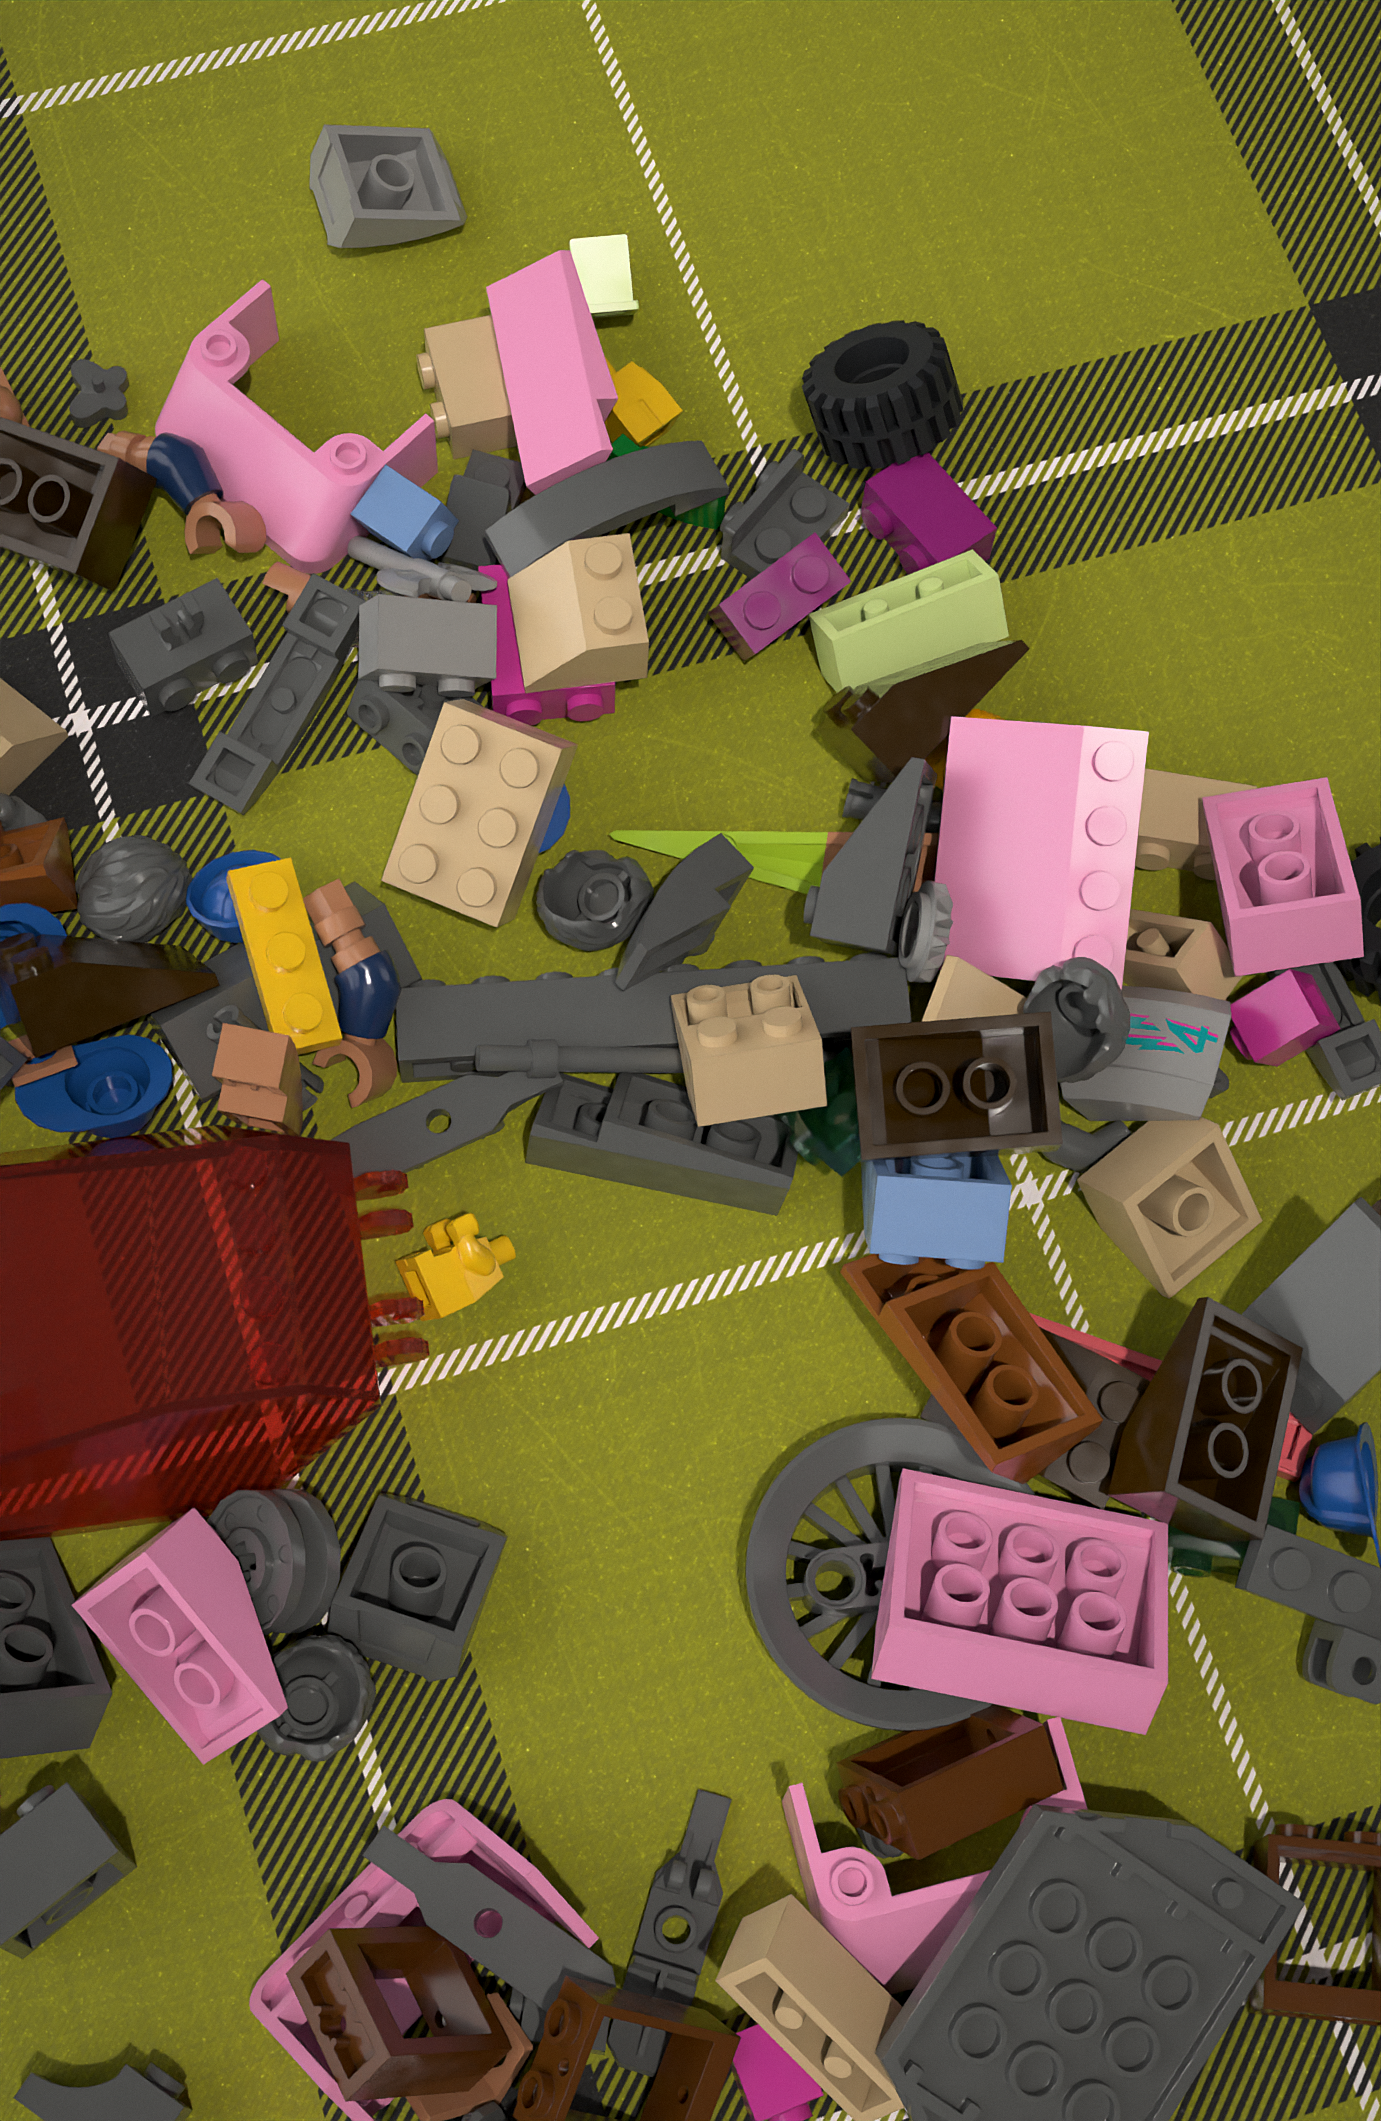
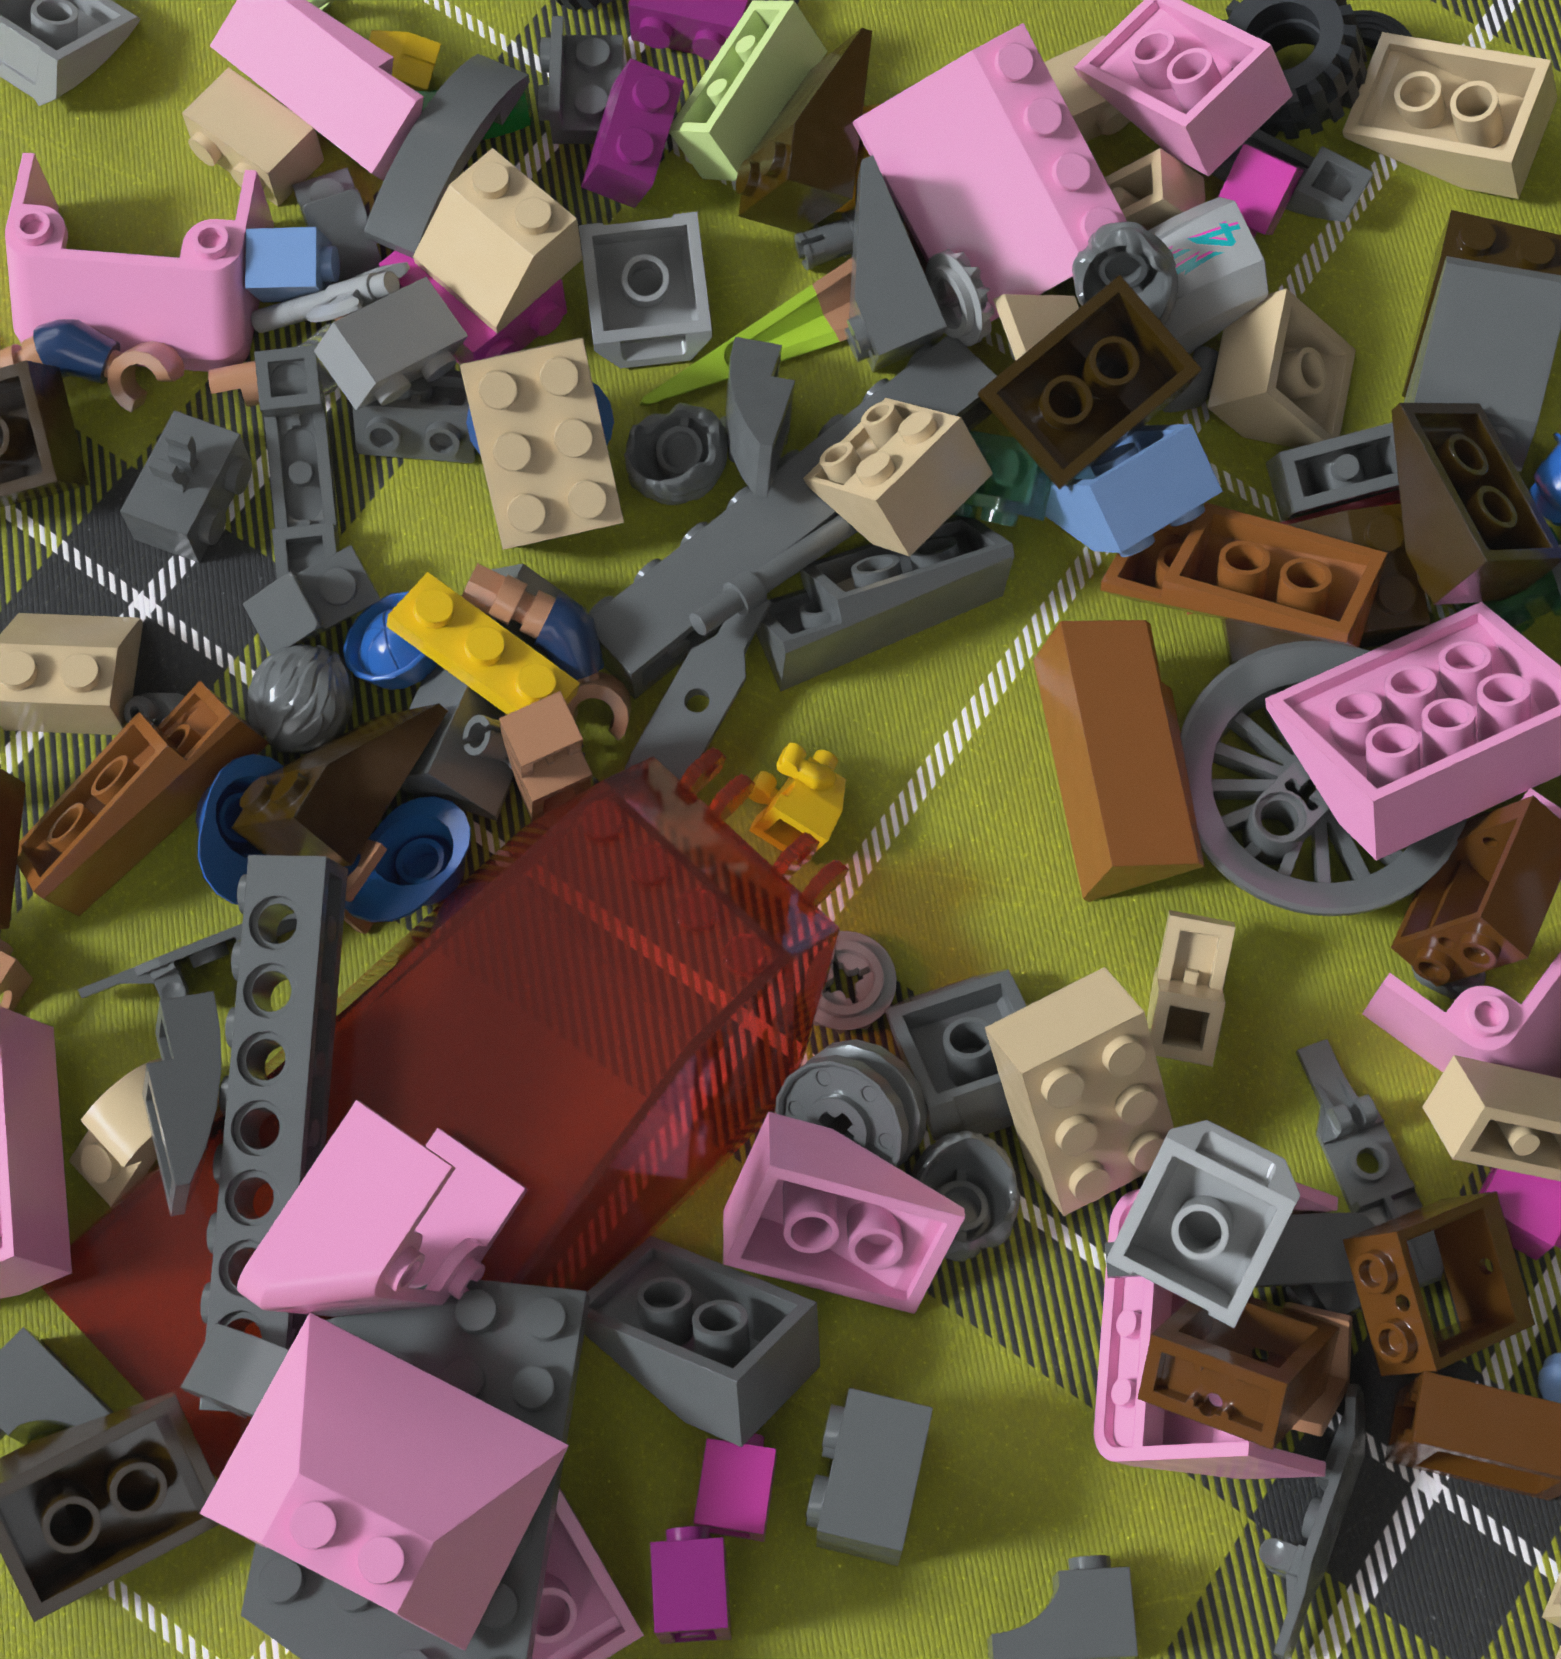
camera: 30 degrees left, 0 degrees up
(206, 814) = (312, 600): none -> dark grey slope
(389, 1472) = (873, 993): none -> light grey gear
(452, 1870) = (1207, 1218): none -> light grey slope
(462, 1685) = (1082, 1089): none -> tan brick
(637, 1669) = (1188, 987): none -> tan brick
(683, 740) = (646, 290): none -> light grey slope
(744, 1426) = (1117, 756): none -> dark orange slope
(1129, 1312) = (1334, 471): none -> dark grey brick

